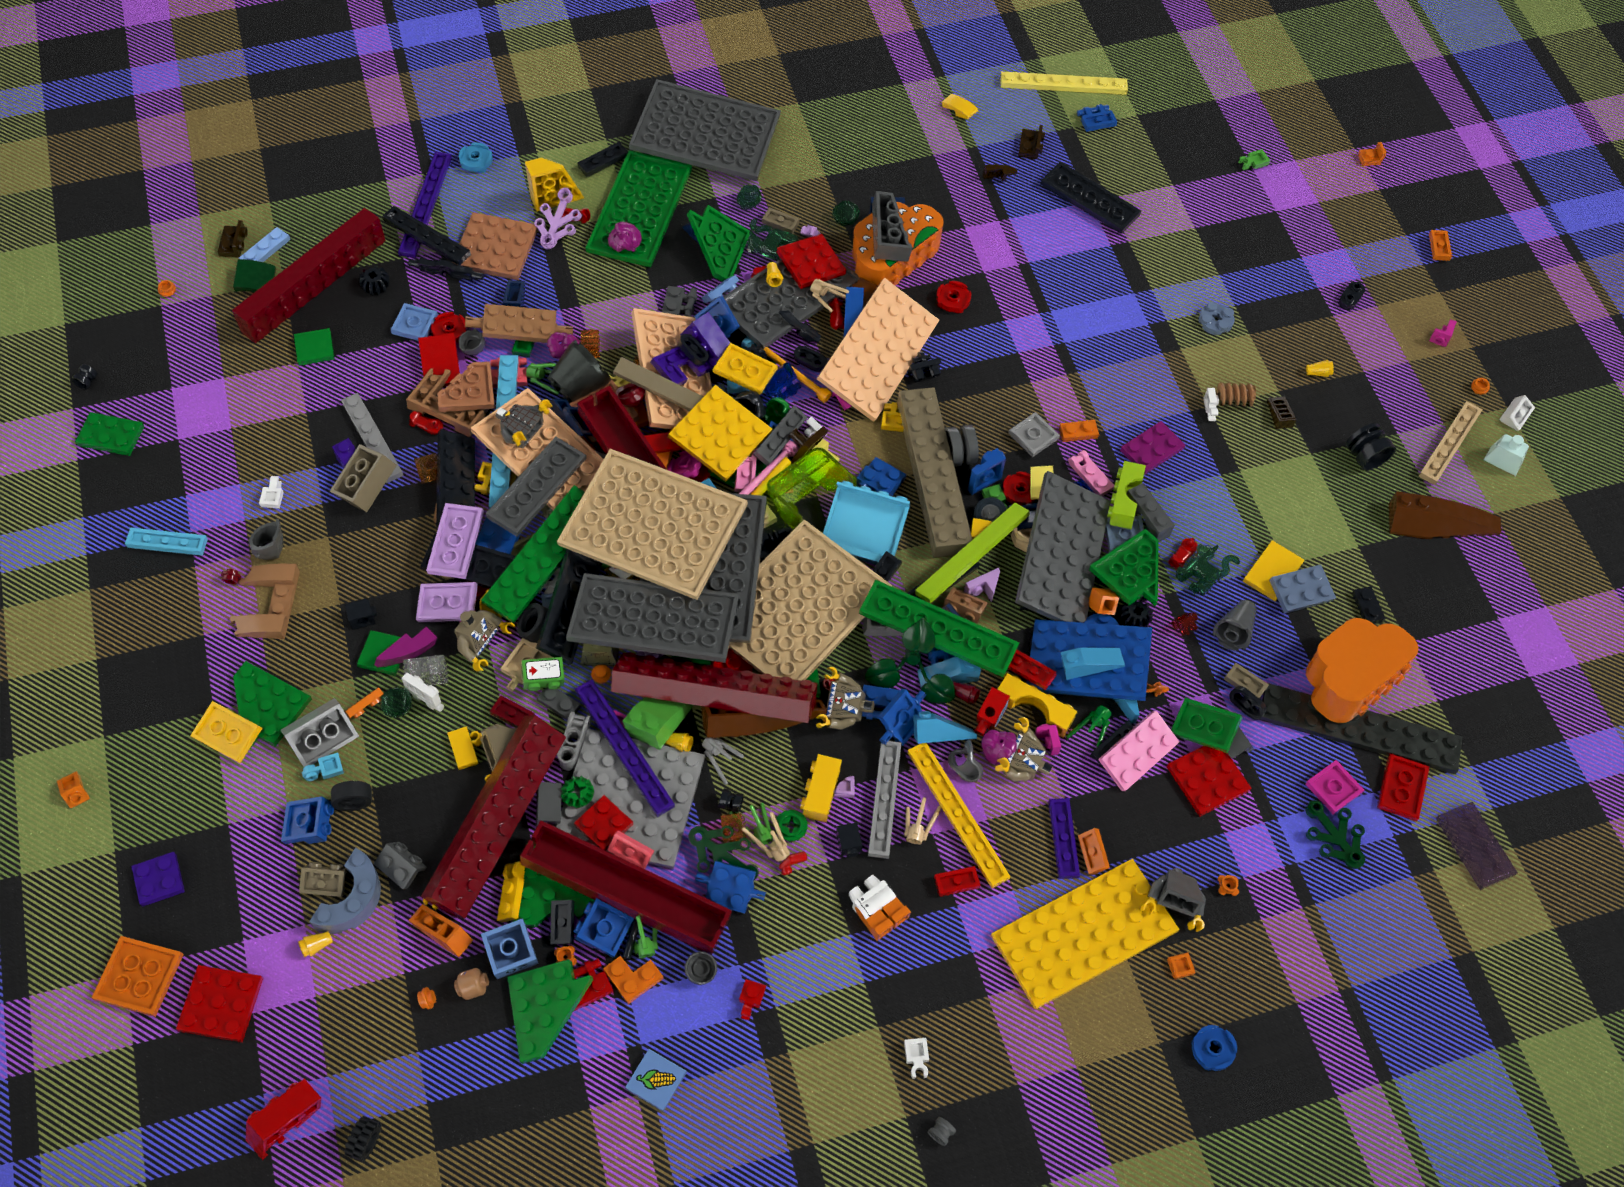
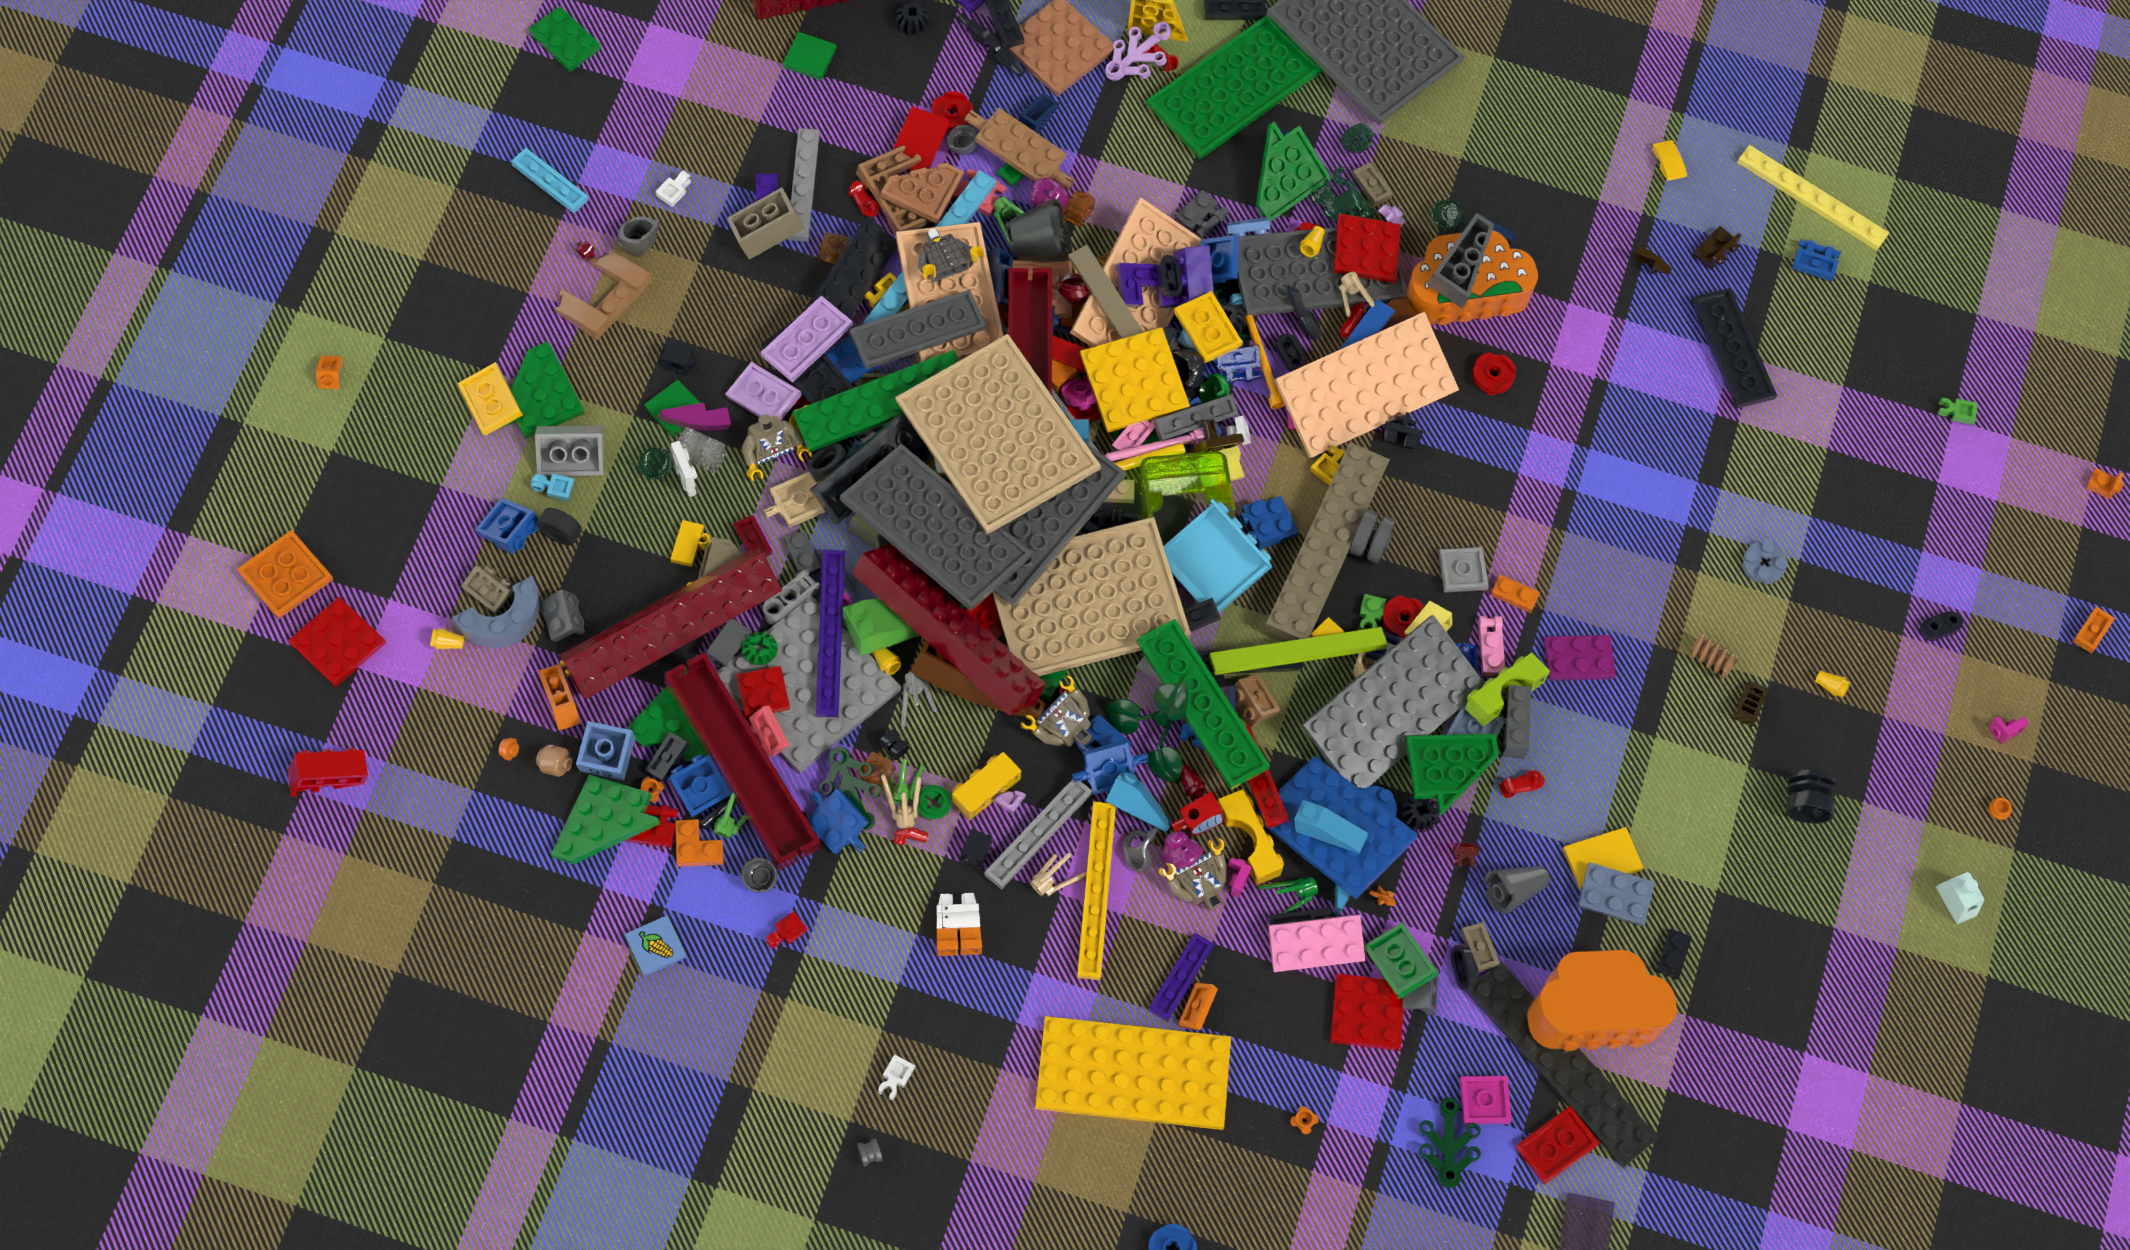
camera: 30 degrees right, 5 degrees up
(158, 879) = (352, 498): dark purple plate -> none
(363, 1139) = (379, 831): black tyre -> none
(372, 699) = (635, 446): orange plate -> none
(413, 322) = (921, 85): medium blue plate -> none
(511, 892) = (641, 702): yellow hinge -> none
(542, 673) = (802, 517): brick -> none
(601, 674) = (857, 548): orange plate -> none
(624, 237) = (1191, 112): magenta hair -> none
(955, 668) = (1192, 754): dark azure slope -> none
(957, 881) = (1048, 950): red plate -> none
(983, 583) = (1295, 689): lavender slope -> none
(988, 472) = (1379, 580): blue plate -> none
(989, 509) = (1352, 618): wheel -> none
(1103, 601) = (1395, 779): orange brick -> none
(1180, 894) = (1246, 1094): dark grey torso -> none
(1181, 966) = (1200, 1160): orange tile -> none
(1203, 570) = (1526, 813): clear green animal -> none
(1211, 400) = (1682, 646): white plate -> none
(1437, 517) = (1822, 911): reddish brown wedge -> none
(1450, 443) = (1910, 846): tan plate -> none
(1517, 412) = (2019, 861): white slope -> none

